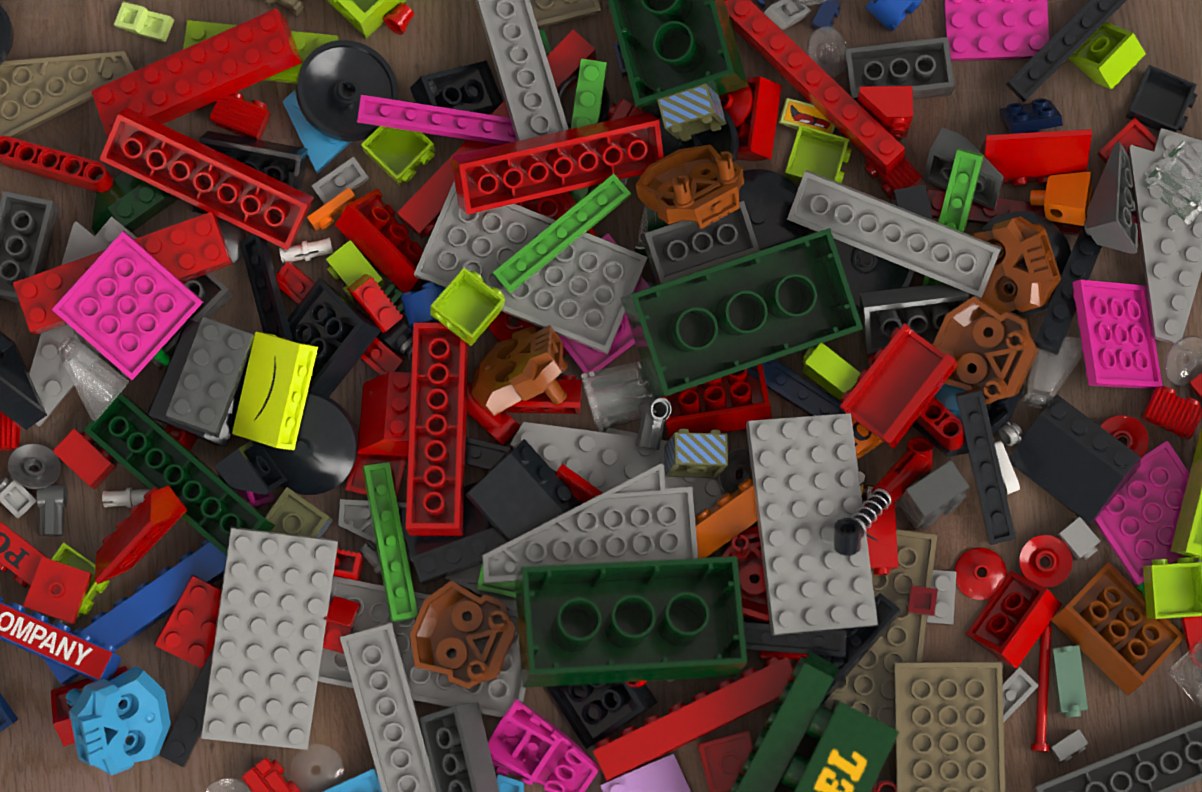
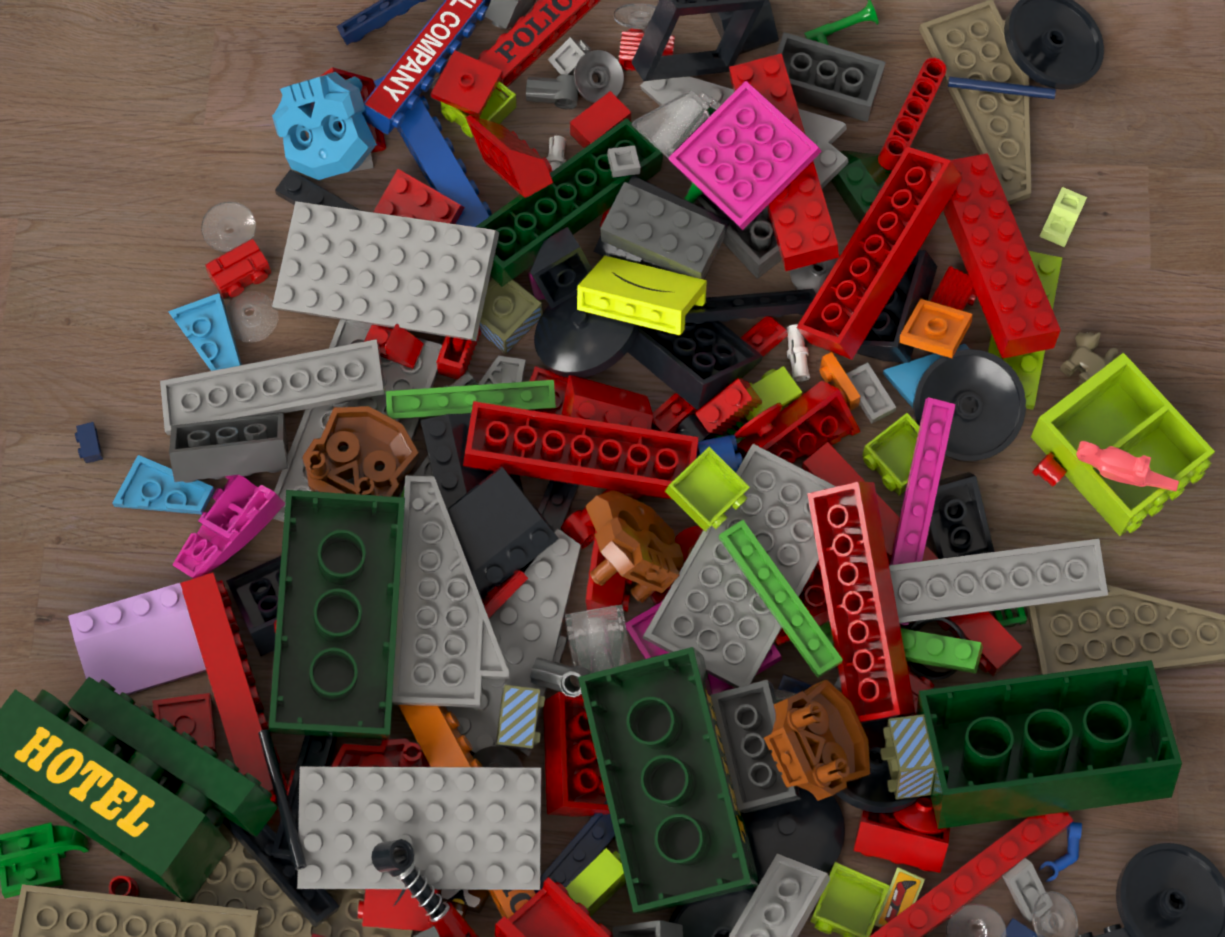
camera: 90 degrees right, 10 degrees down
(17, 79) = (999, 87): none -> dark blue bar
(136, 423) = (623, 161): none -> light grey plate
(279, 122) = (936, 328): none -> orange plate
(388, 271) = (761, 423): none -> red dish
(630, 221) = (793, 684): none -> dark blue piece
(801, 649) = (282, 800): none -> black piece

